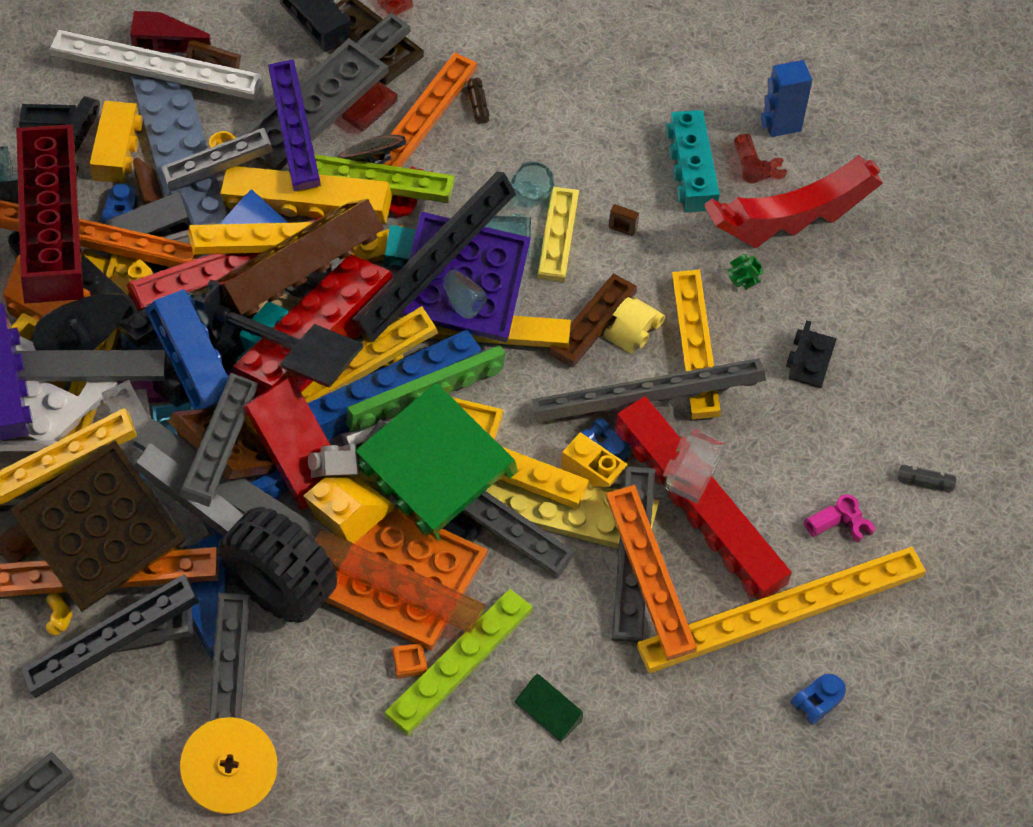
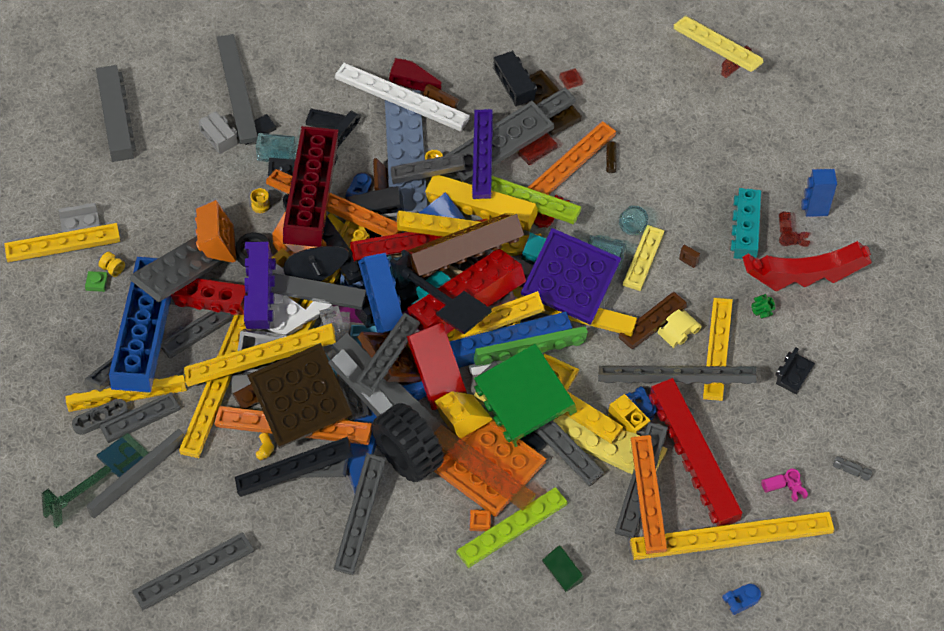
camera: 15 degrees right, 0 degrees up
(115, 142) = (365, 144): yellow brick -> none
(242, 787) = (358, 577): yellow piece -> none
(333, 461) = (458, 382): light grey brick -> none
(374, 146) = (532, 177): shield -> none
(433, 257) = (553, 259): black plate -> none
(464, 294) = (567, 288): clear light blue rock -> none
(694, 465) = (693, 429): clear brick -> none

